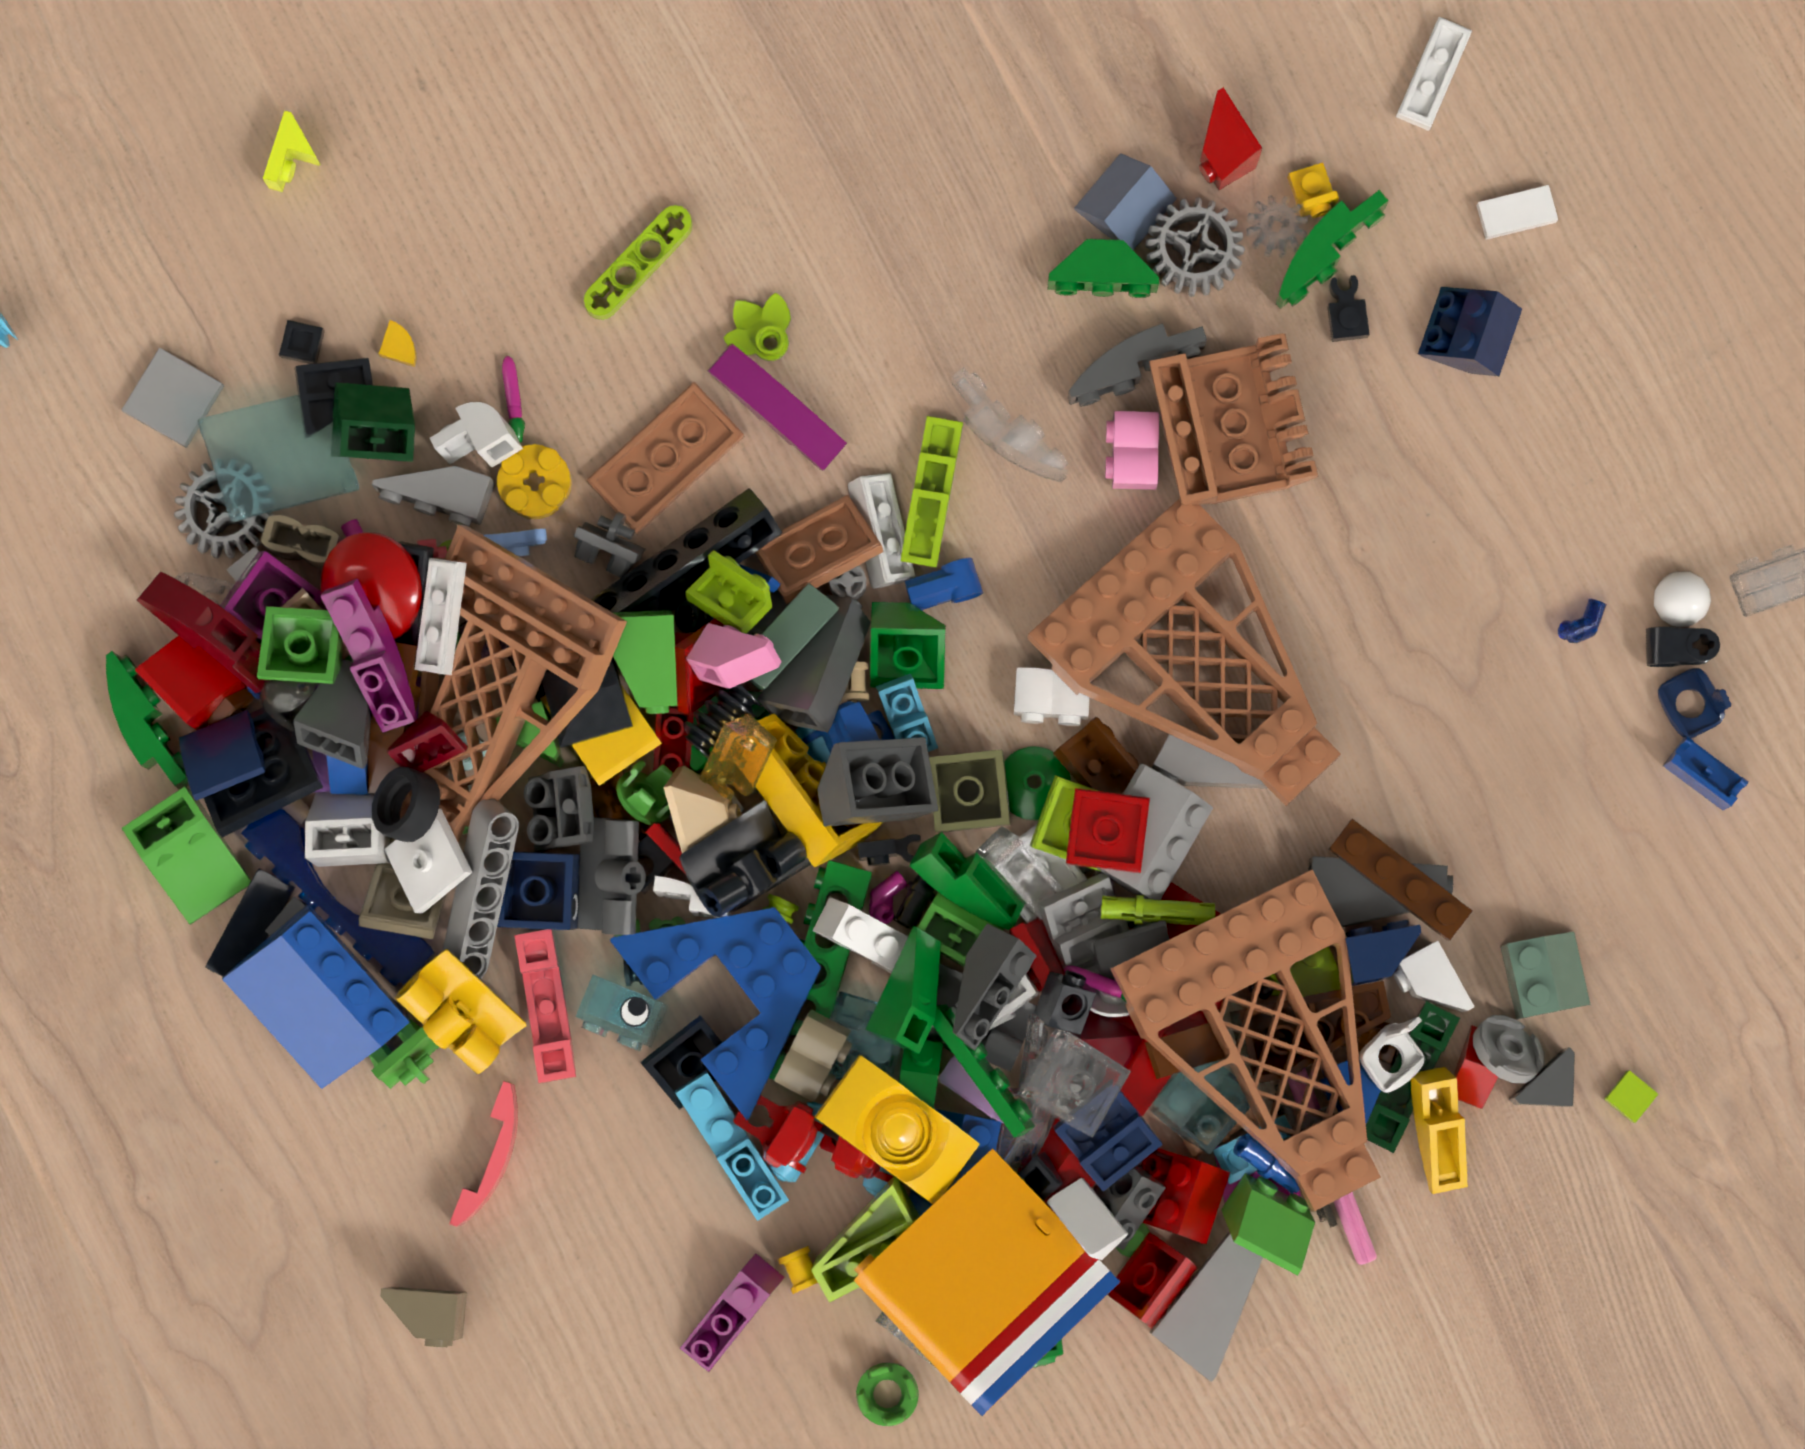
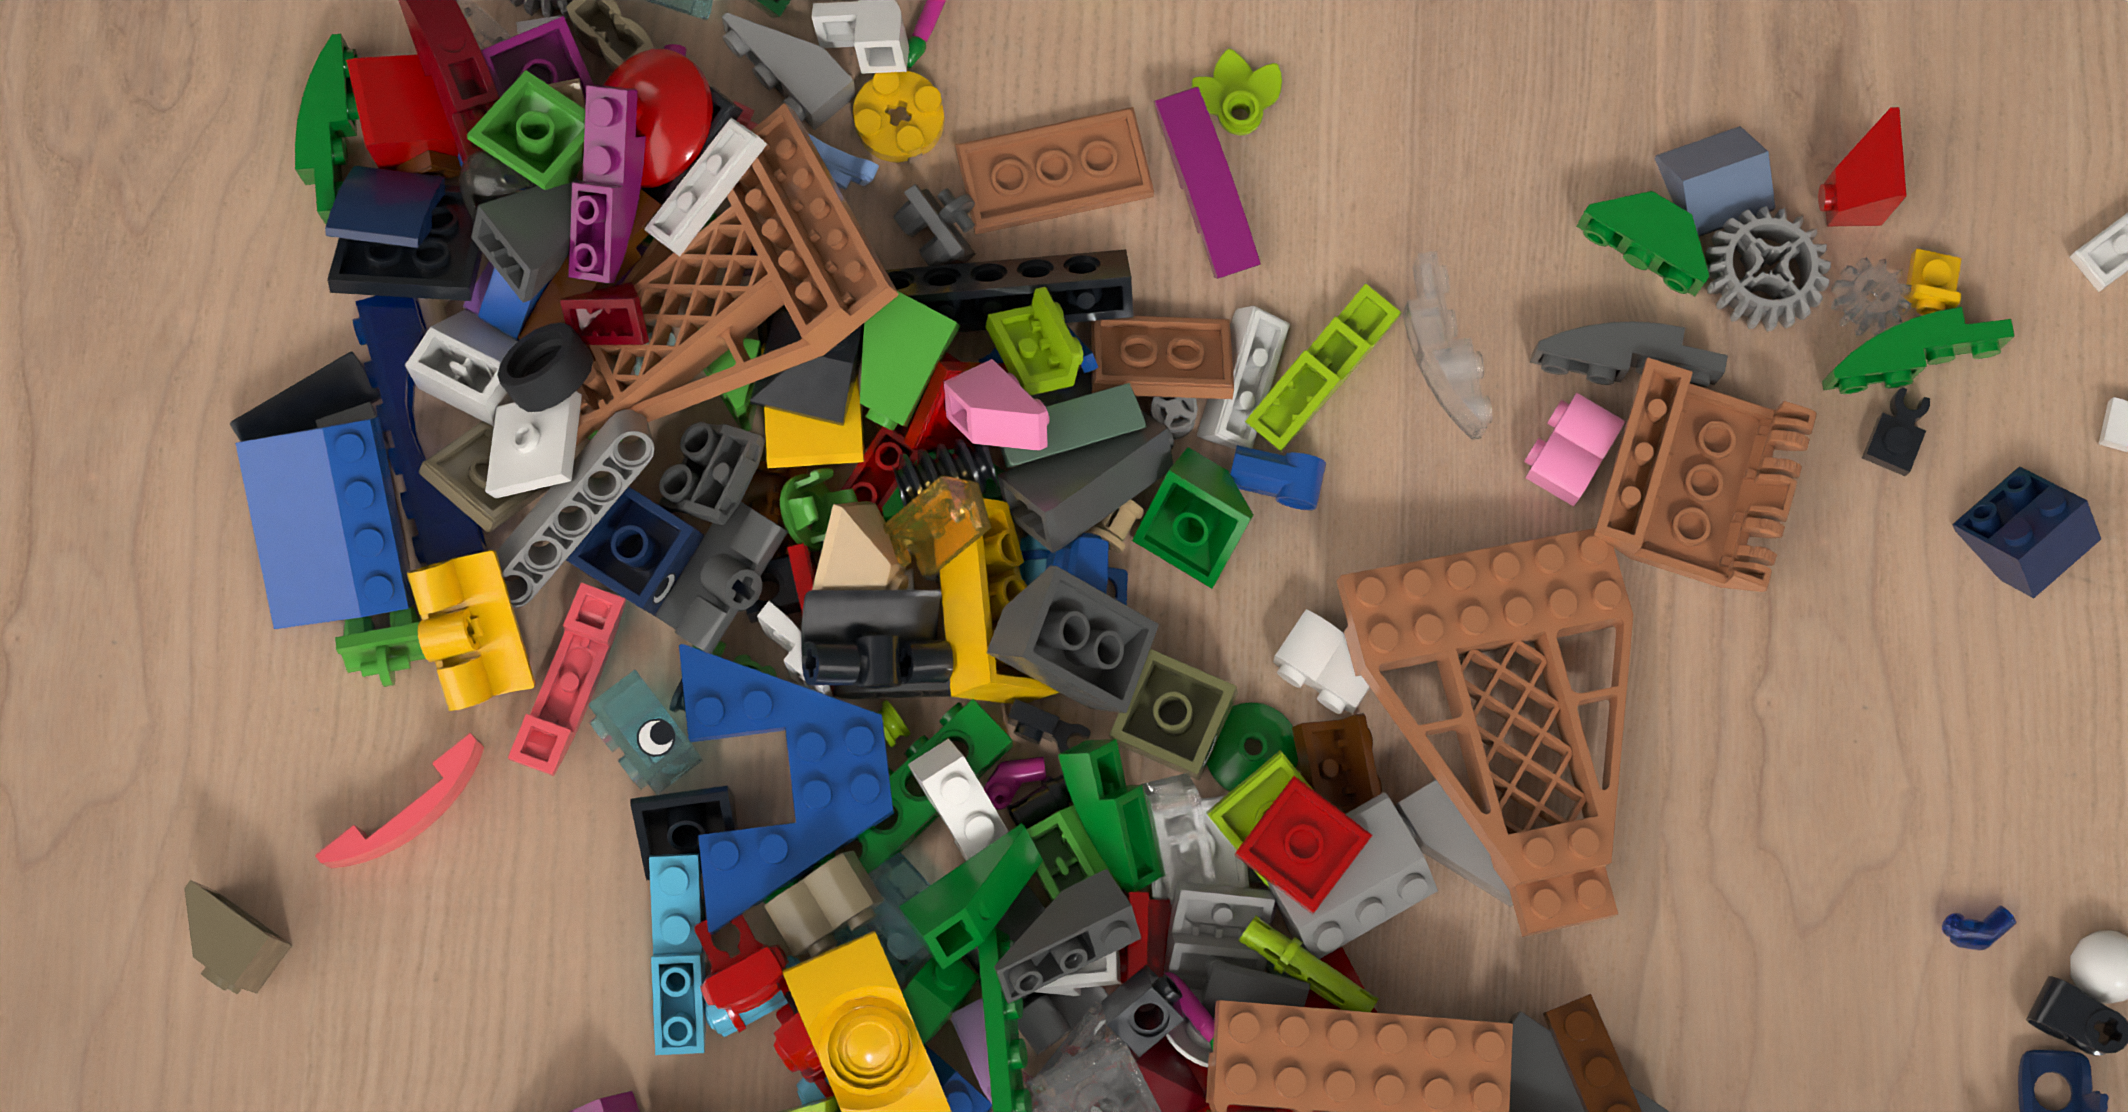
camera: 25 degrees right, 5 degrees down
(187, 855) = (284, 293): bright green slope -> none
(684, 617) = (978, 346): black bush -> none
(906, 710) = (1156, 587): medium azure slope -> none

